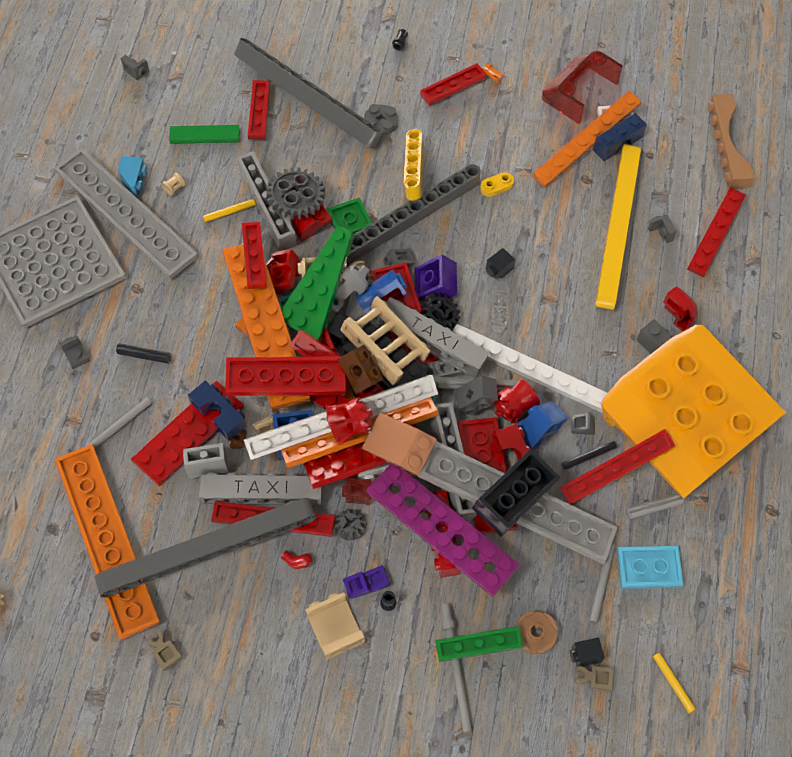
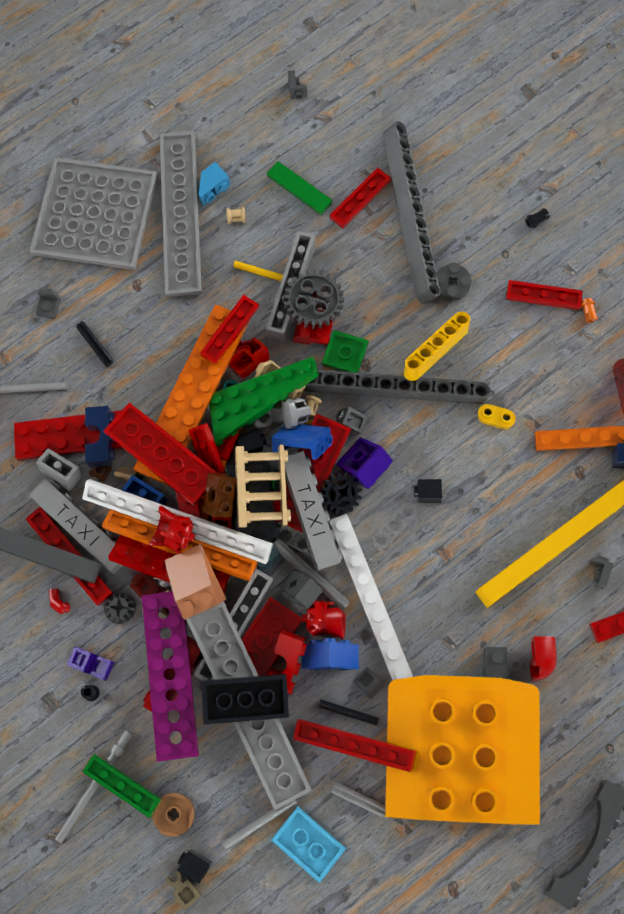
camera: 50 degrees right, 10 degrees up
(334, 625) = (39, 676): tan panel -> none

